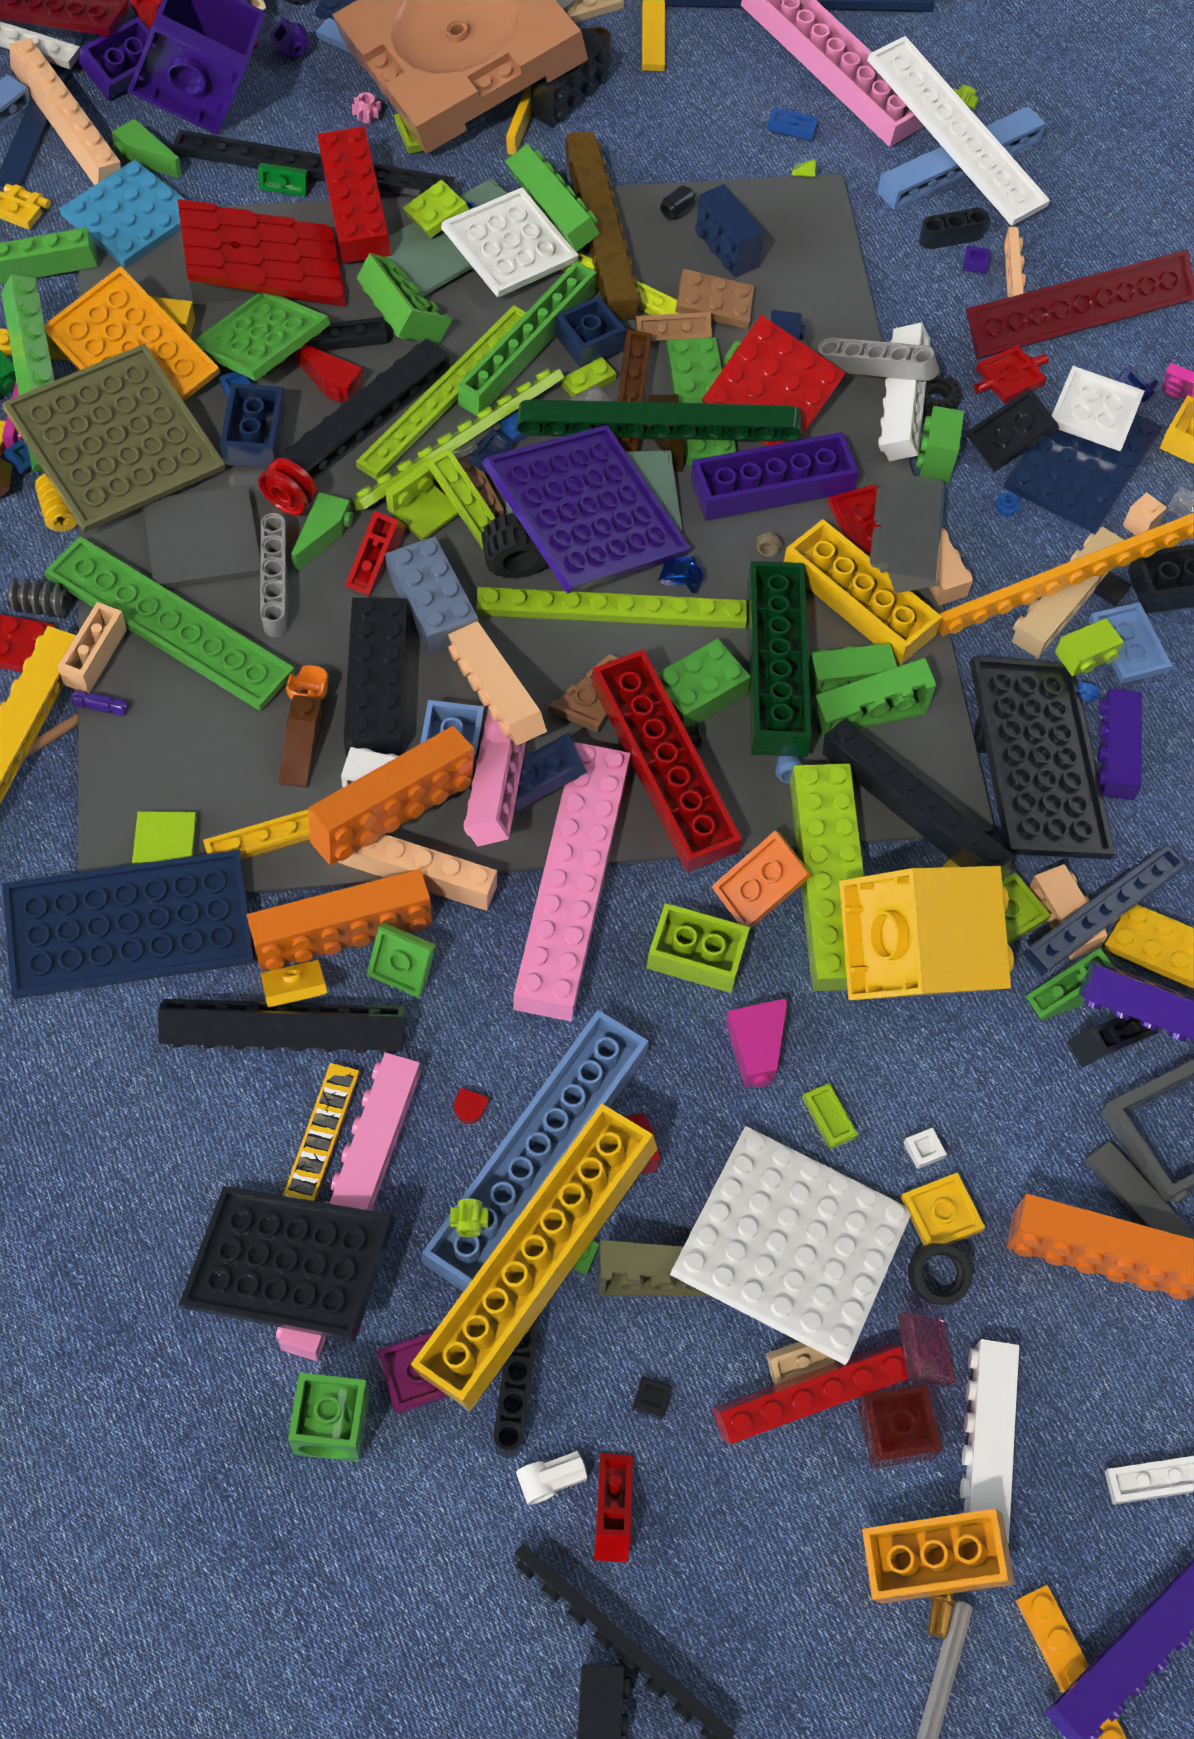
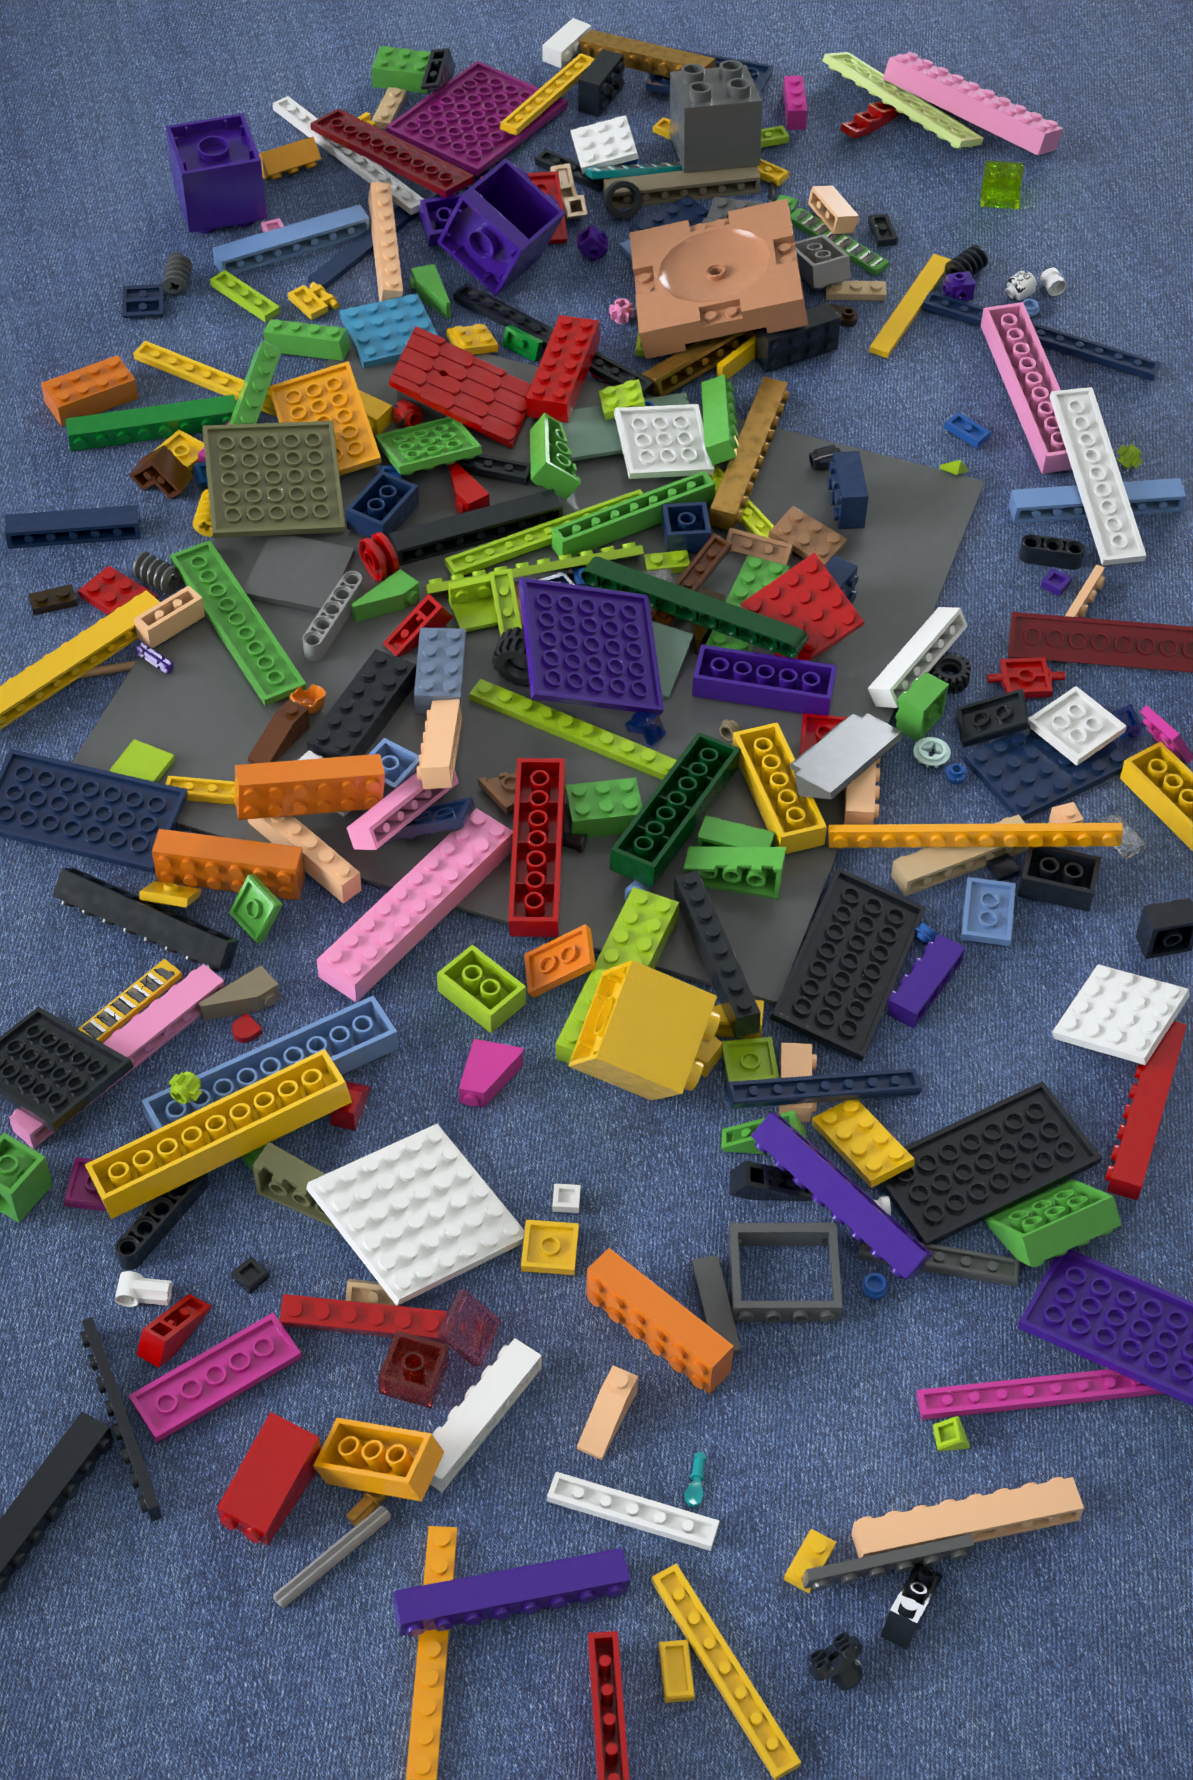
camera: 30 degrees right, 10 degrees down
(211, 306) = (406, 413): none -> red head
(226, 191) = (473, 339): none -> yellow plate
(448, 1068) = (245, 995): none -> dark tan slope
(476, 144) = (693, 362): none -> pearl gold brick
(691, 1542) = (214, 1377): none -> dark pink plate
(829, 1116) = (509, 1147): lime tile -> none
(831, 1638) = (270, 1479): none -> red slope
(881, 358) = (905, 623): light grey beam -> none
(961, 1285) = (518, 1263): black tyre -> none
(977, 484) = (923, 748): none -> light aqua gear
(1089, 647) = (942, 897): lime brick -> none
(1115, 1373) = (608, 1412): none -> light nougat slope

